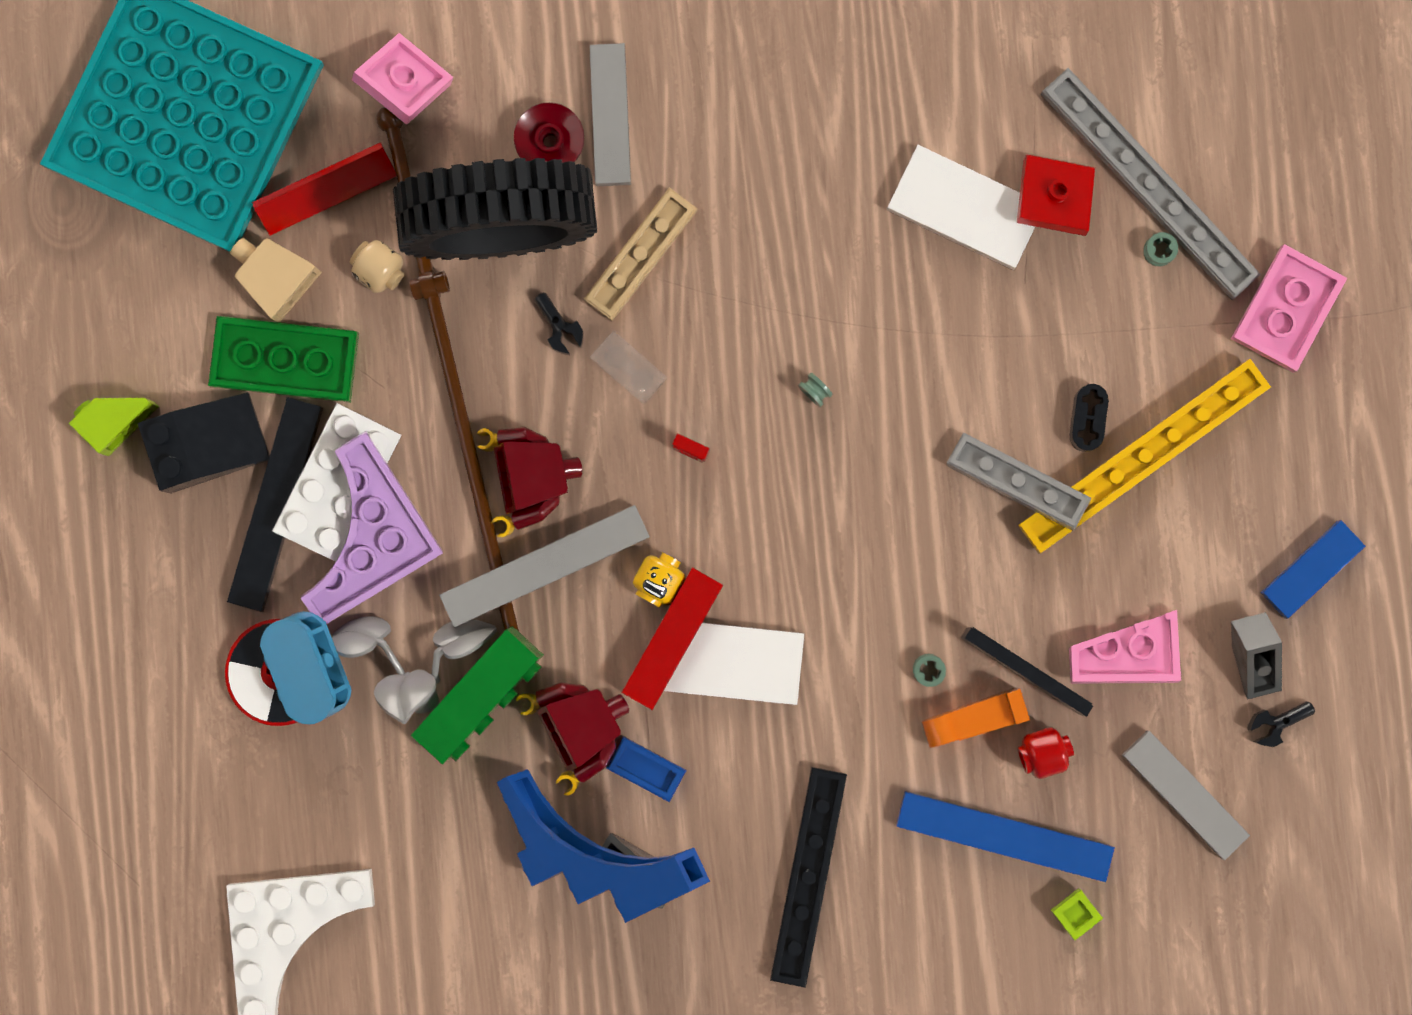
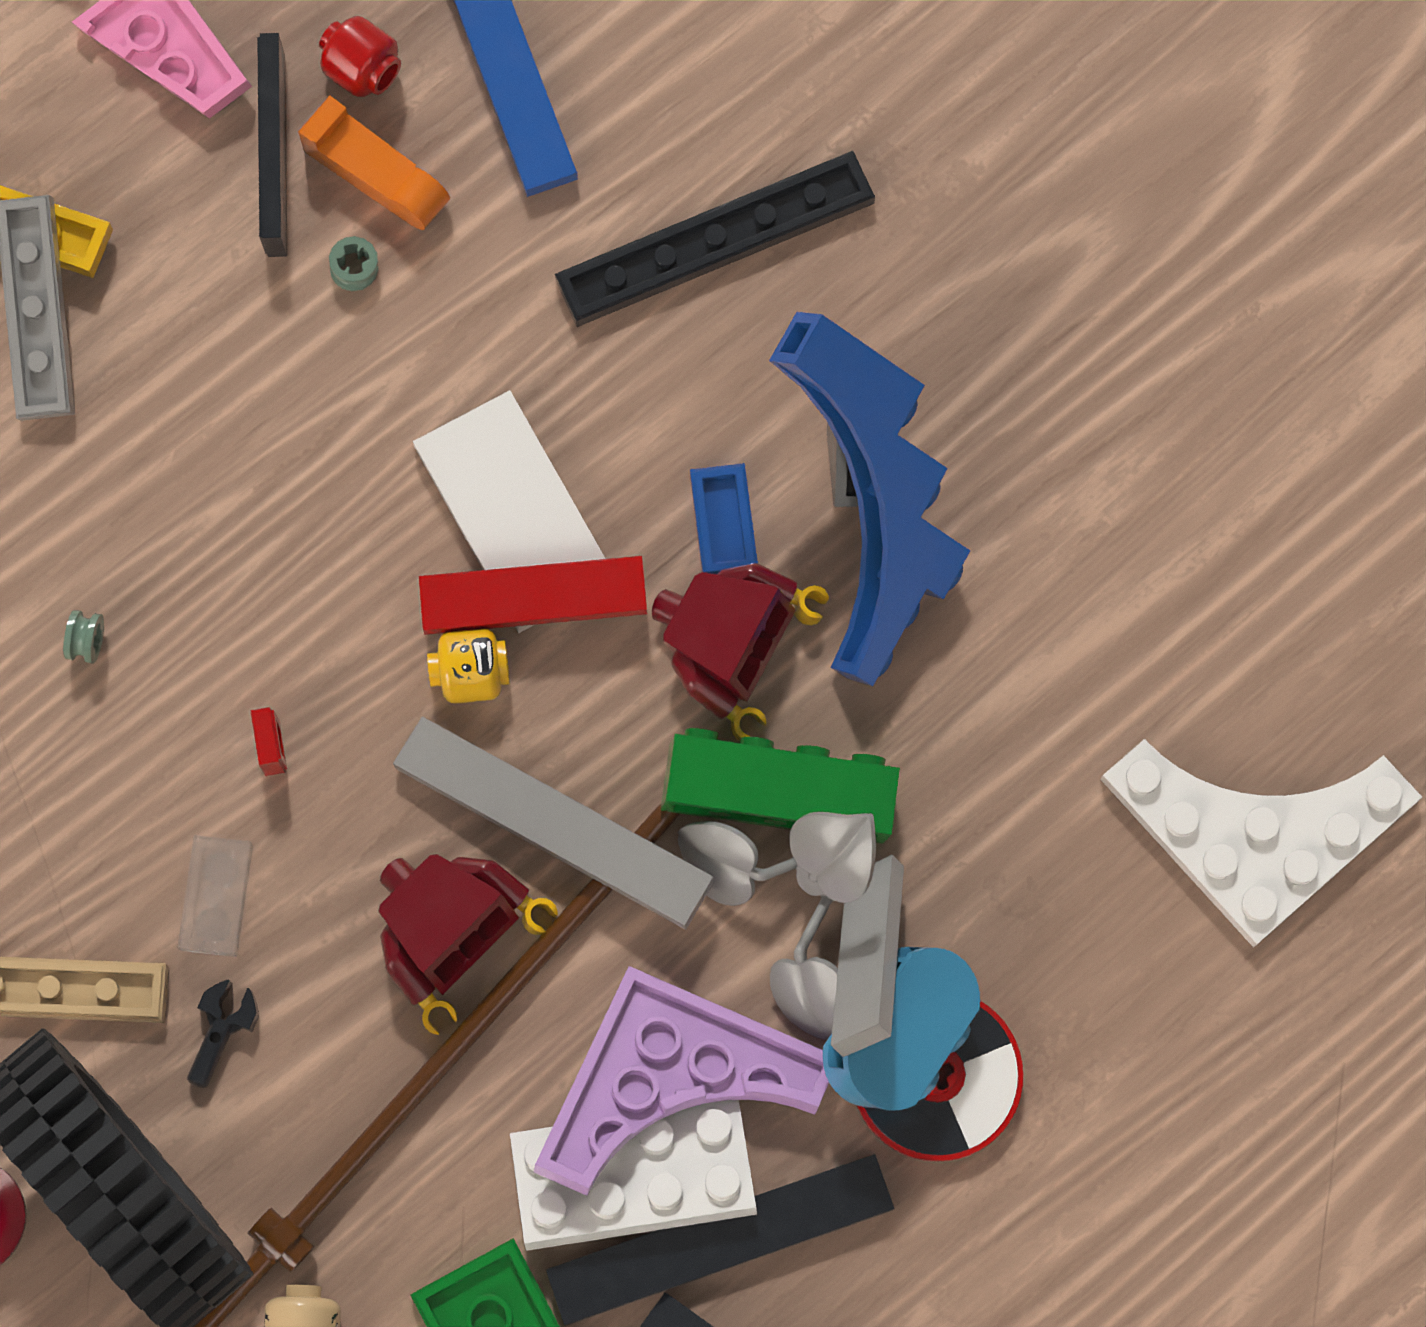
camera: 130 degrees left, 10 degrees down
(341, 669) = (868, 962): none -> light grey tile

